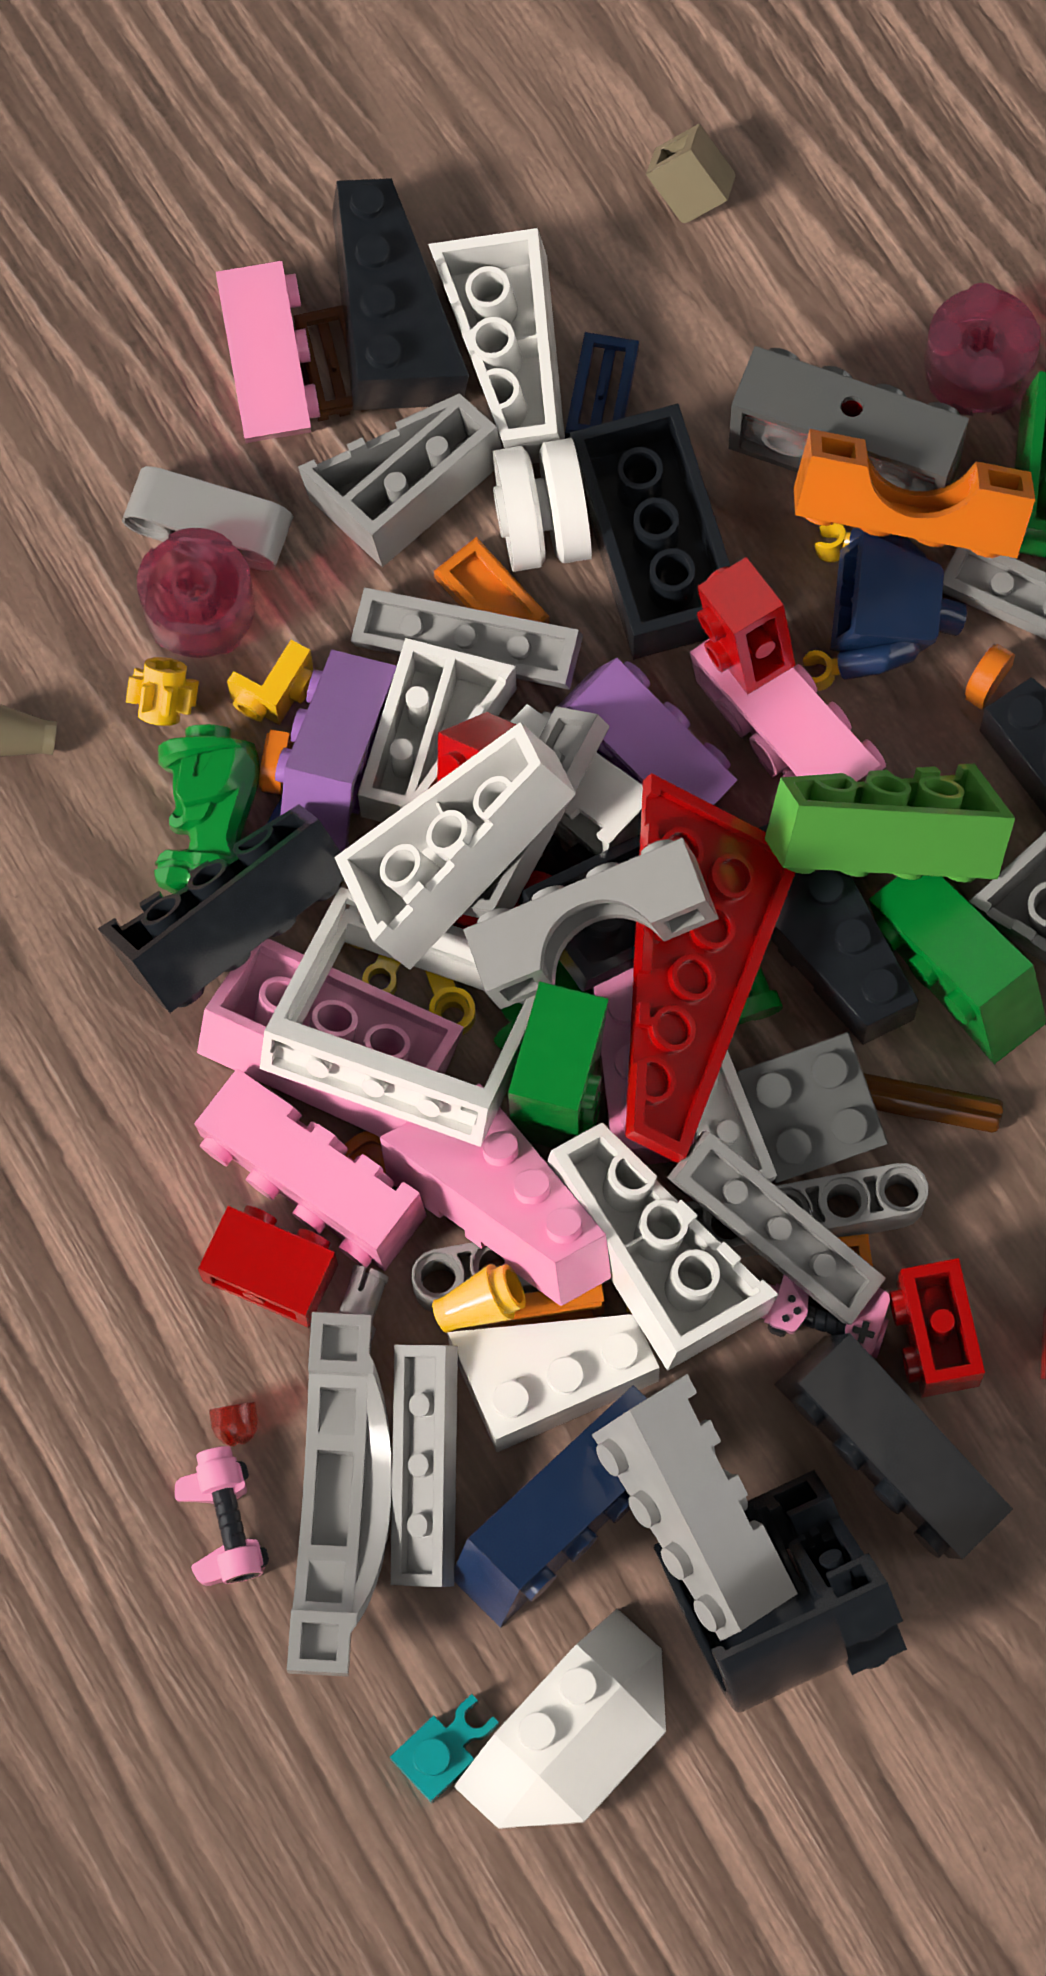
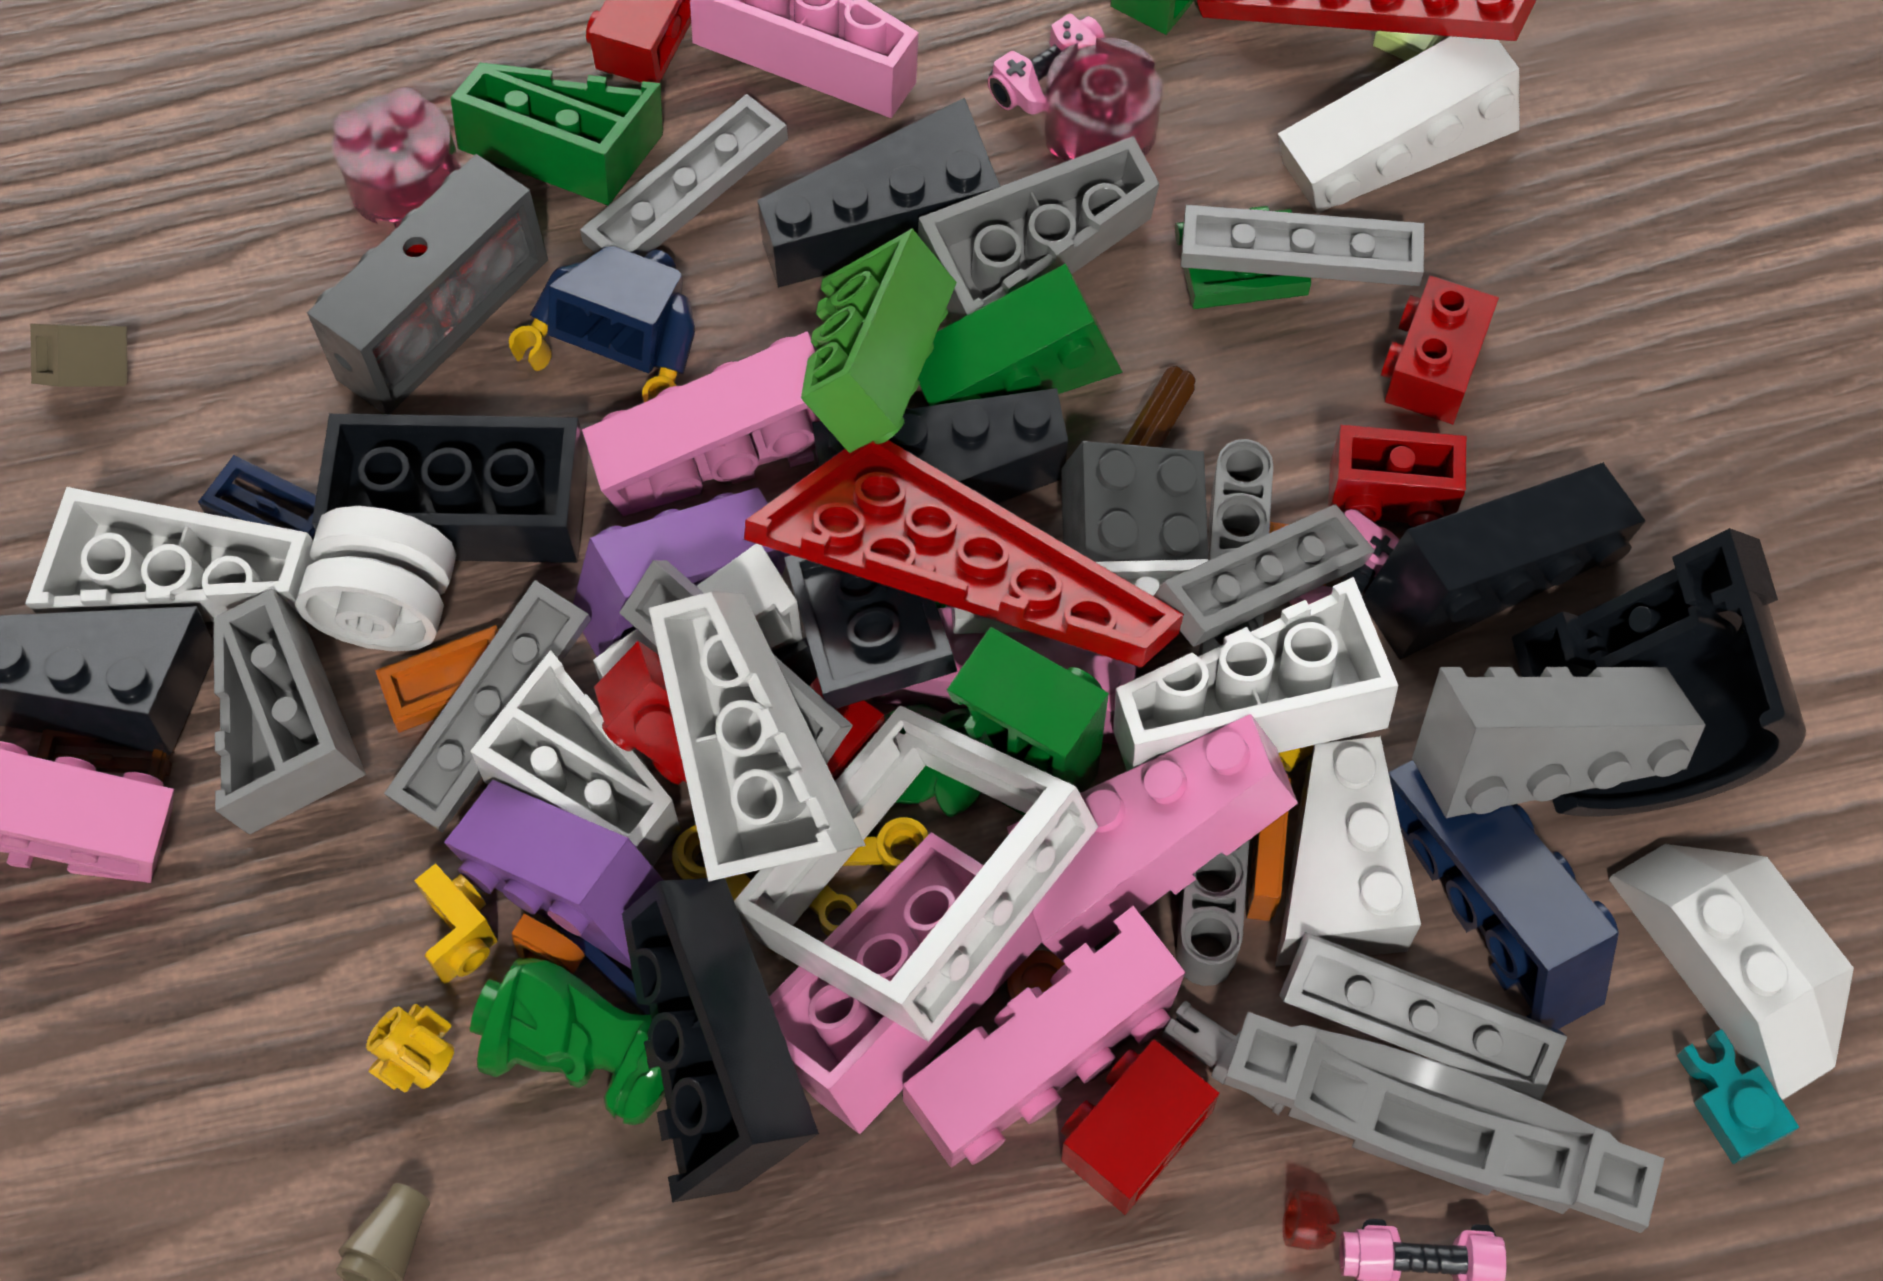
camera: 75 degrees left, 10 degrees down
(167, 587) = (319, 938): clear pink brick -> none
(172, 502) = (222, 942): light grey beam -> none
(482, 1299) = (1262, 891): yellow cone -> none
(525, 943) = (893, 536): light grey arch -> none
(745, 626) = (608, 401): red brick -> none
(978, 512) = (571, 182): orange arch -> none
(988, 675) = (730, 253): orange tile -> none

